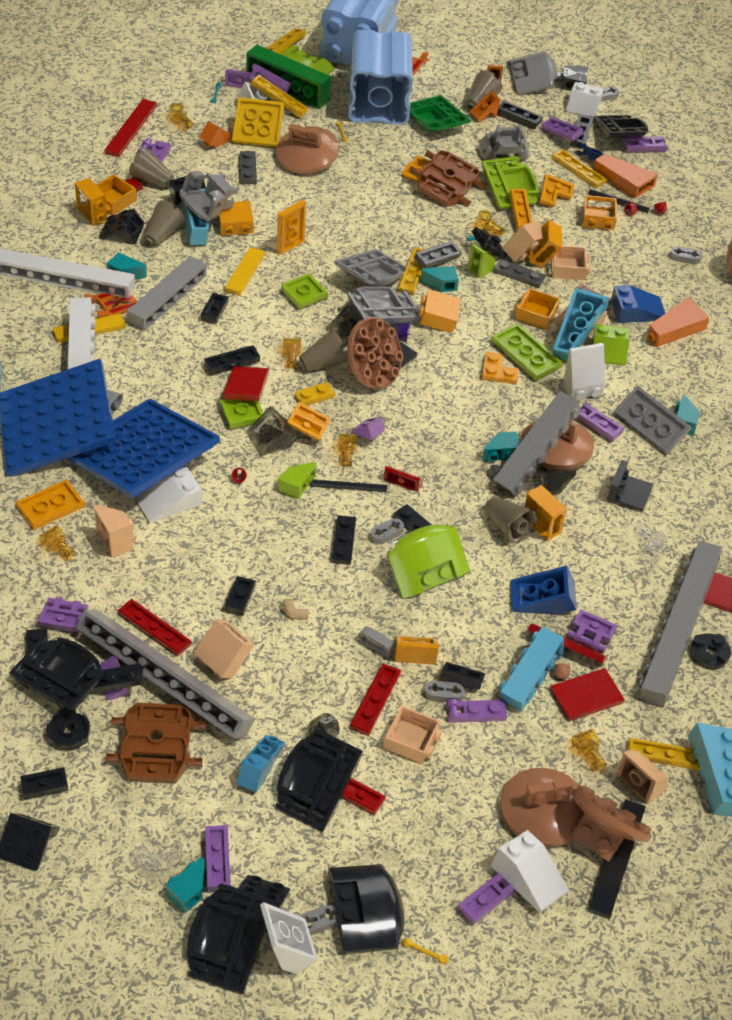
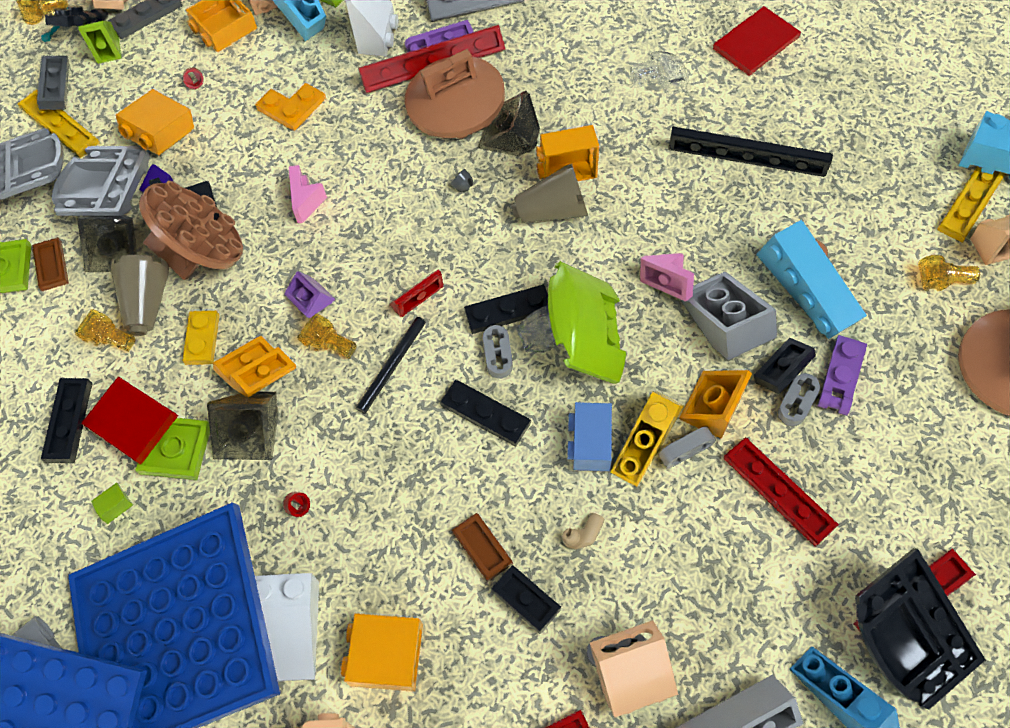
camera: 55 degrees left, 15 degrees up
(175, 540) = (382, 652): none -> light orange piece
(196, 399) = (111, 503): none -> lime slope
(261, 566) = (482, 547): none -> dark orange tile
(297, 479) = (350, 428): lime slope -> none
(320, 310) = (50, 264): none -> dark orange tile
(325, 723) = (817, 583): clear smoke head -> none
(354, 590) = (592, 436): none -> medium blue brick
(384, 618) = (646, 437): none -> yellow slope
(412, 735) = (864, 469): light nougat piece -> none
(435, 399) = (304, 197): none -> bright pink slope
(440, 278) = (97, 96): teal slope -> none
(481, 636) = (731, 315): none -> light grey slope
(484, 313) = (188, 80): none -> red hinge
(492, 594) = (667, 275): none -> bright pink slope
(501, 446) = (428, 153): teal slope -> none
(526, 351) = (281, 62): lime plate -> none
(537, 443) = (466, 107): light grey brick -> none
(544, 592) = (686, 214): blue slope -> none
(576, 647) = (788, 217): red tile -> none
(587, 694) = (858, 241): red tile -> none
(593, 626) = (759, 187): medium lavender plate -> none
(601, 435) = (407, 65): none -> red tile
(618, 612) = (750, 151): none -> black tile
(629, 490) = (563, 58): black bracket -> none
(680, 625) = (797, 98): light grey brick -> none
(710, 641) = (831, 78): black plate -> none

